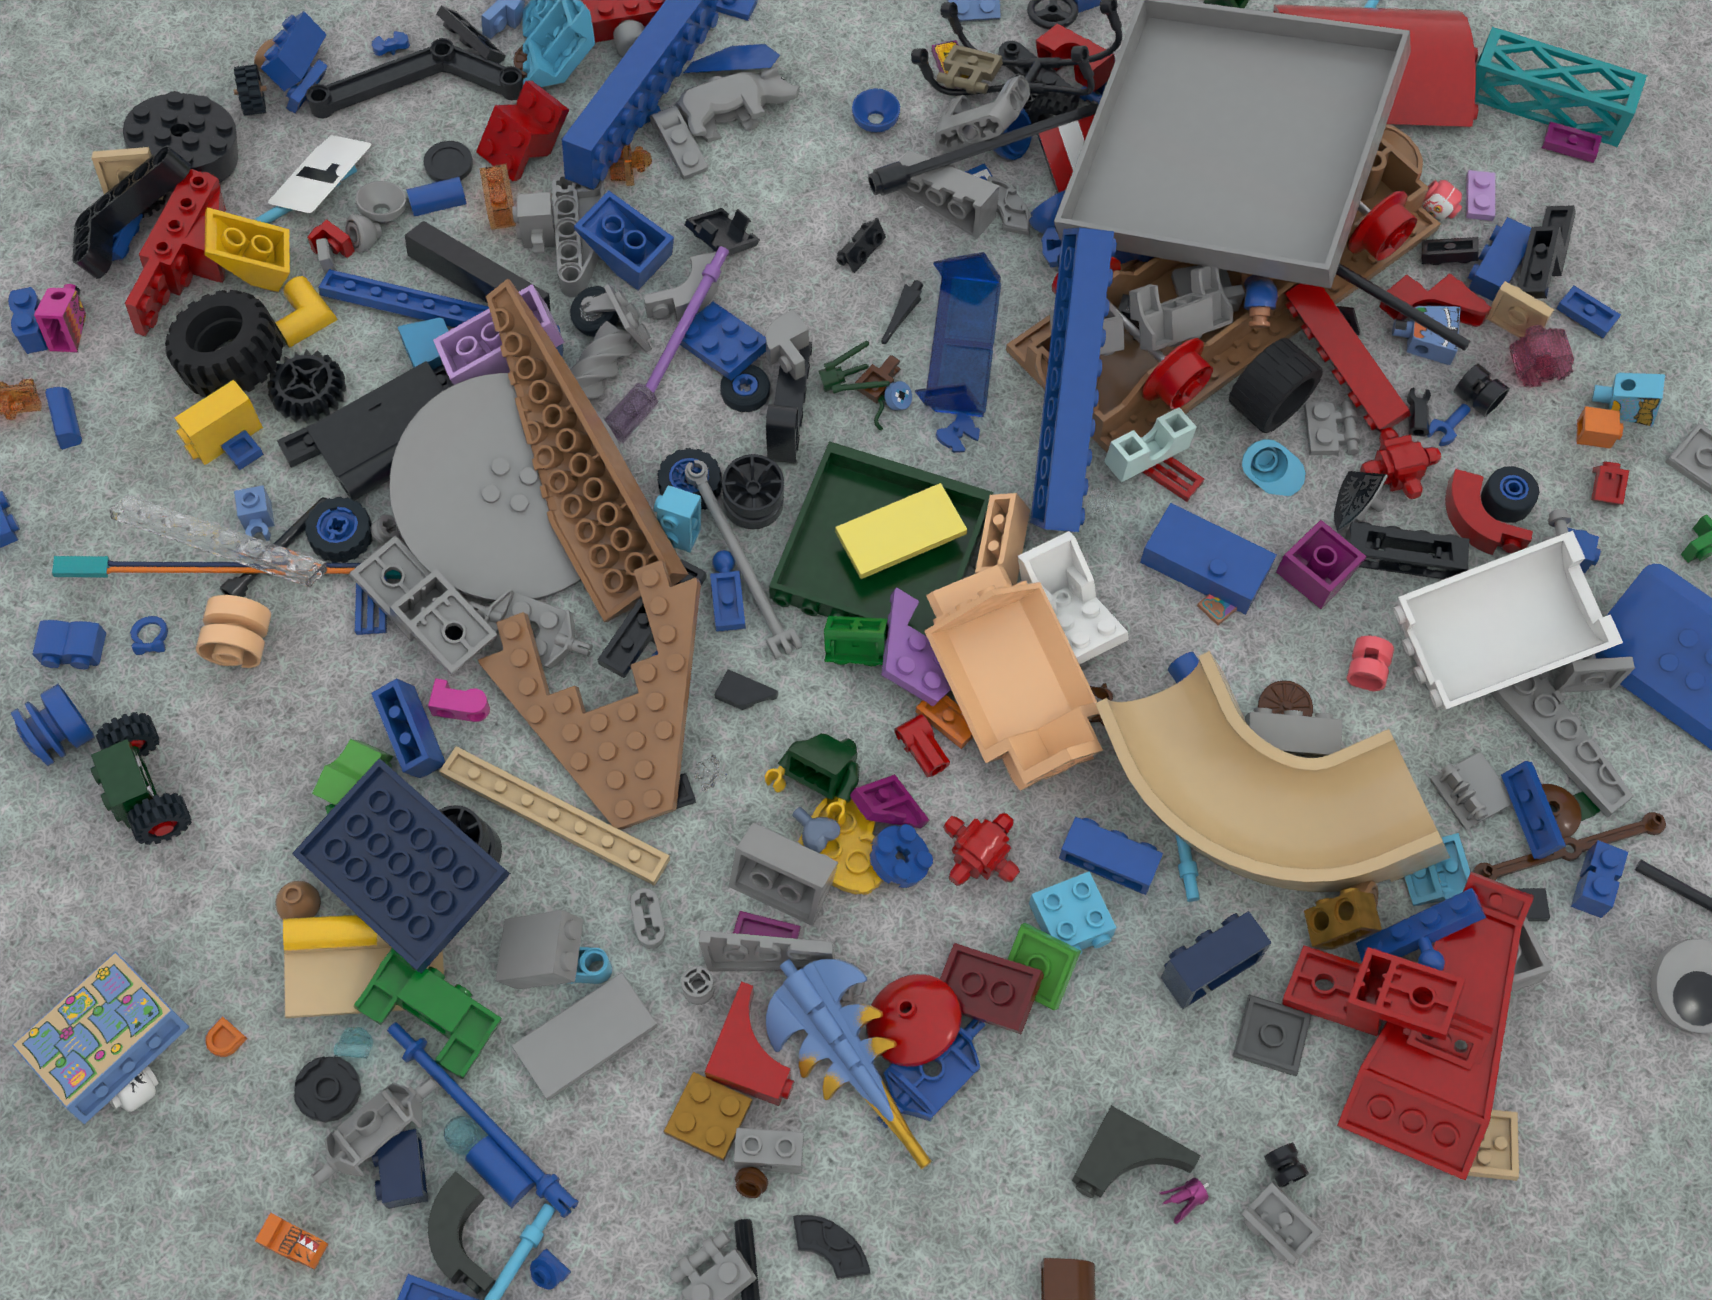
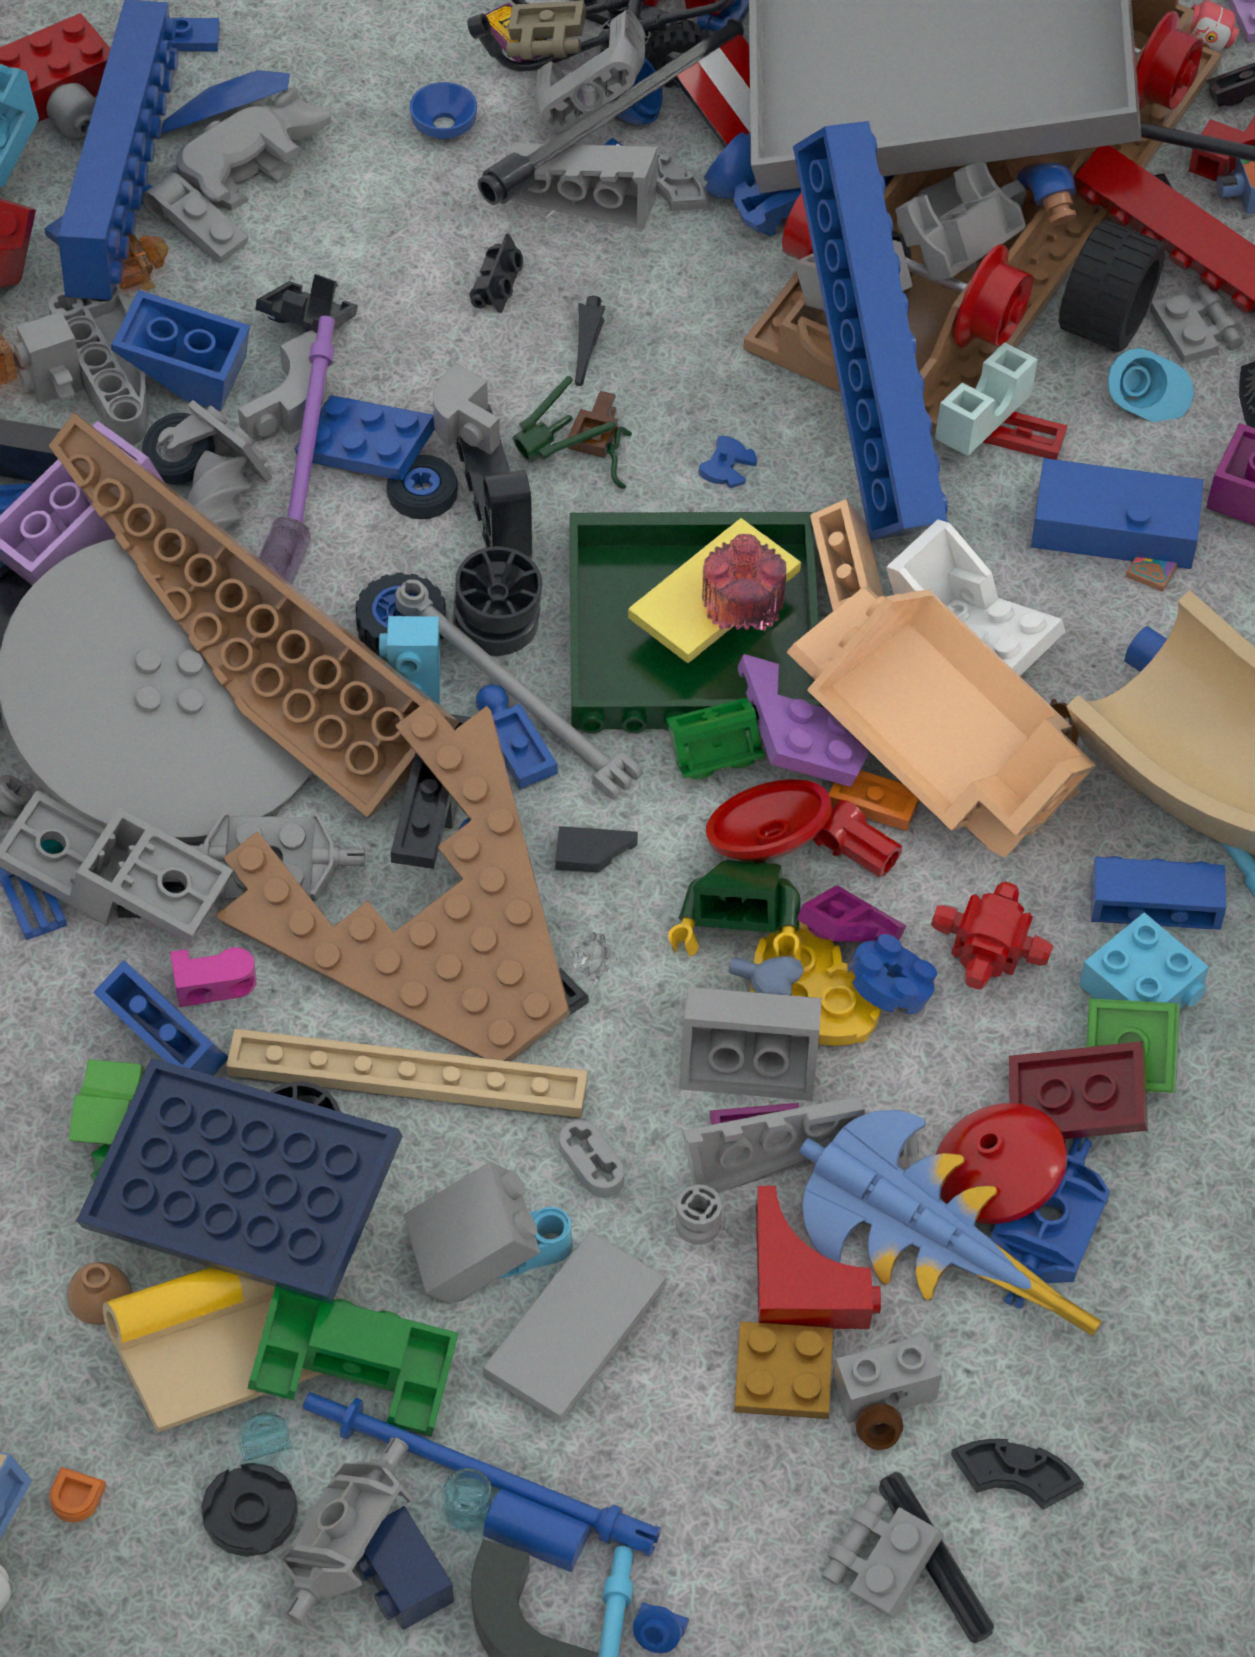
camera: 20 degrees left, 10 degrees down
(865, 713) = (769, 820): none -> red dish
(898, 395) = (630, 438): medium blue tile -> none
(915, 537) = (744, 584): none -> clear pink brick
(963, 336) = (679, 344): clear blue piece -> none

